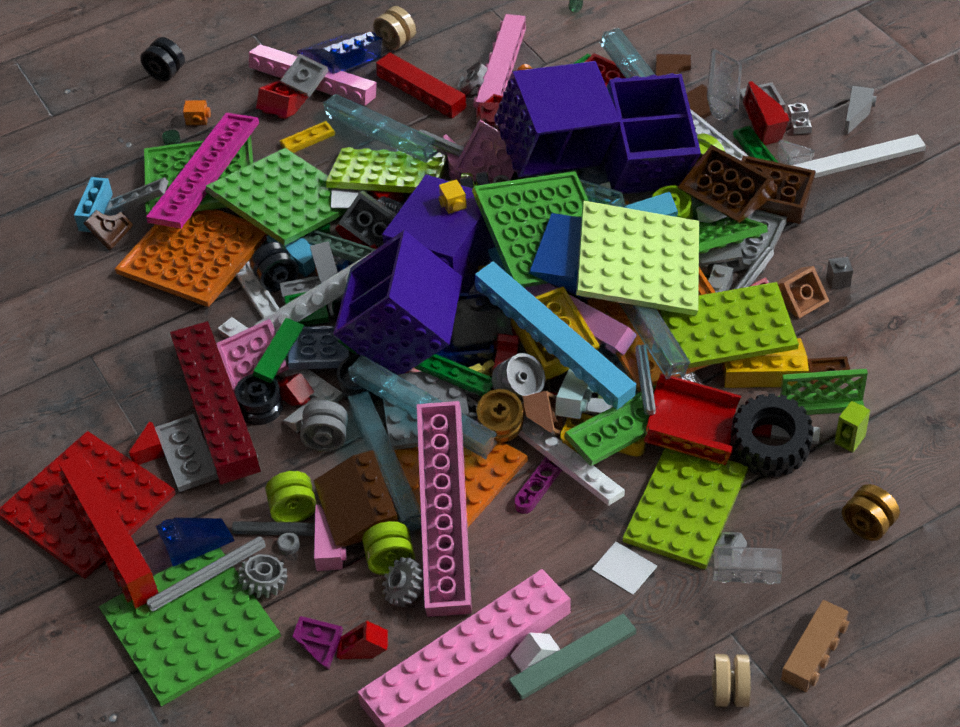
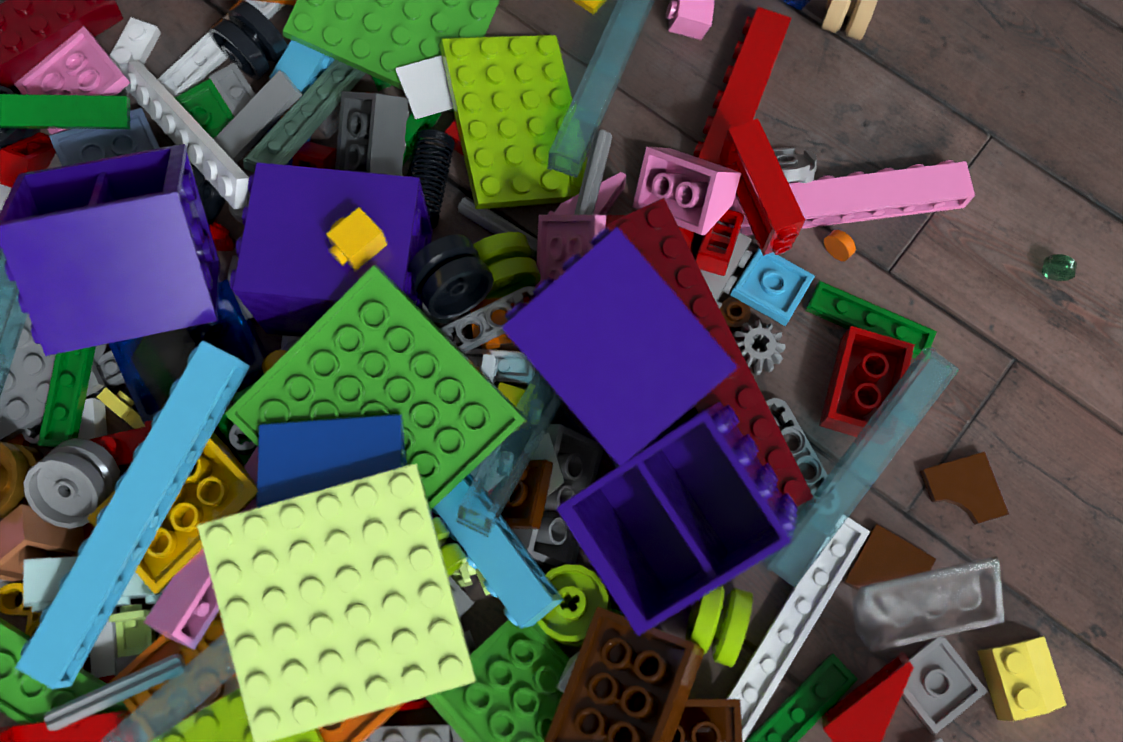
camera: 65 degrees right, 25 degrees up
(461, 115) = (692, 187): none -> bright pink slope
(482, 89) = (762, 188): none -> red window
(770, 71) = (1021, 679): none -> light yellow slope

